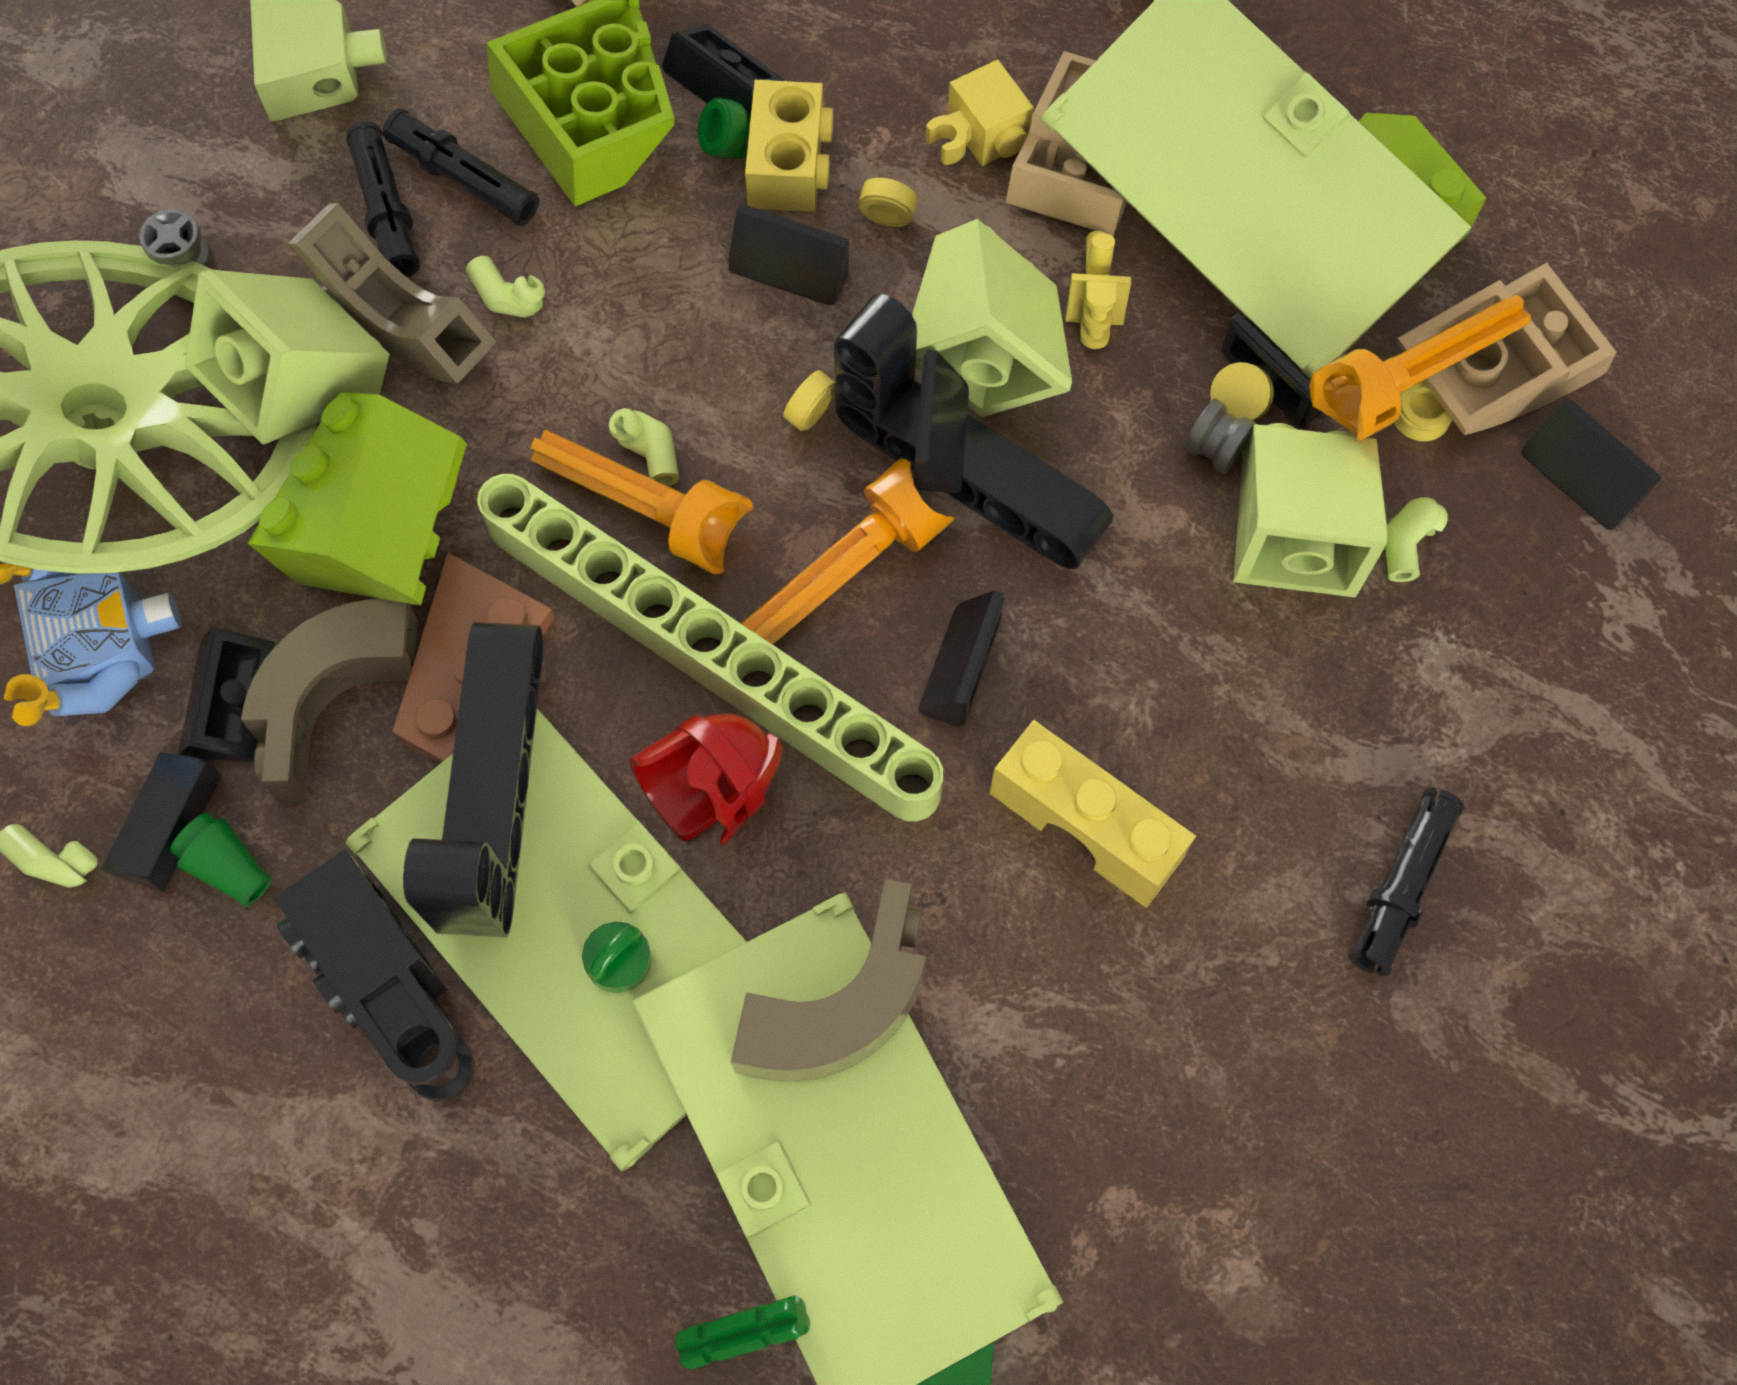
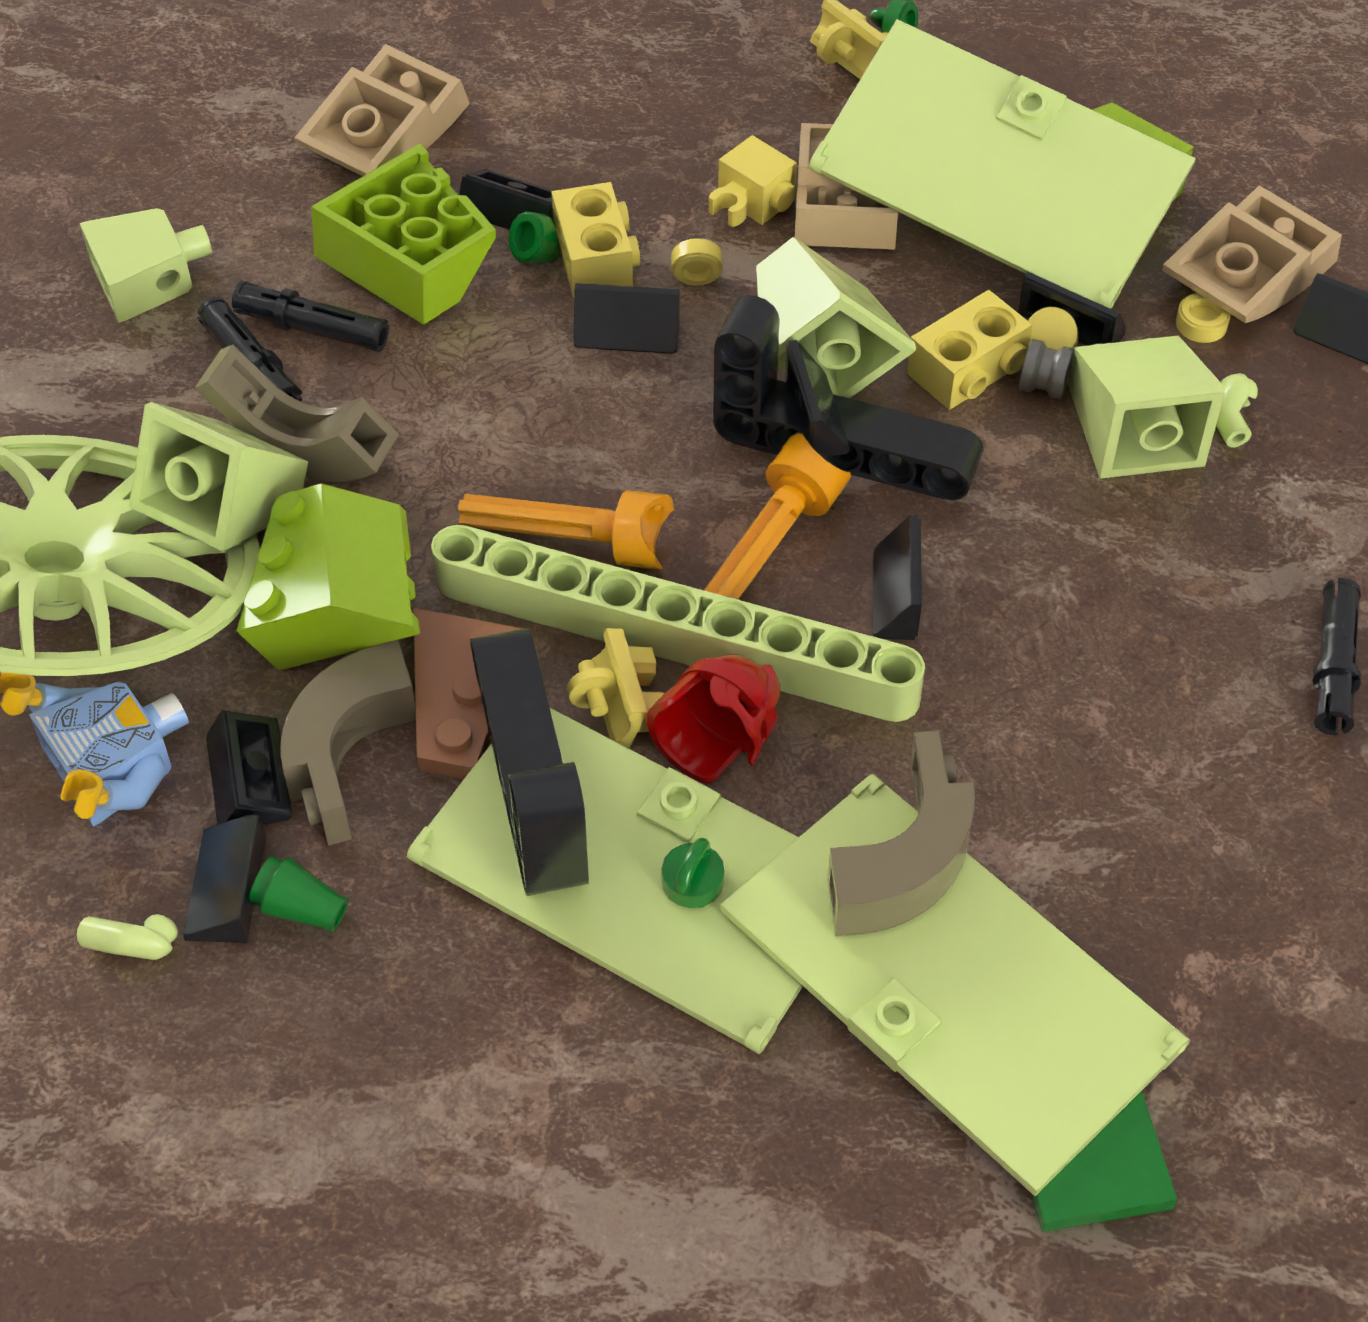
camera: 15 degrees left, 15 degrees down
(171, 231) = (71, 420): flat silver wheel -> none
(374, 973) = (485, 934): black brick -> none
(515, 299) = (391, 406): yellowish green arm -> none
(628, 684) = (612, 687): none -> light yellow hips
(648, 439) = (555, 482): yellowish green arm -> none
(742, 1332) = (922, 1138): green axle -> none
(810, 401) = (690, 420): light yellow tile -> none
(1057, 785) = (1097, 670): light yellow arch -> none
(1096, 297) = (902, 290): light yellow arm -> none
(1137, 379) = (969, 349): none -> light yellow brick
(1368, 390) = (1162, 293): light orange piece -> none

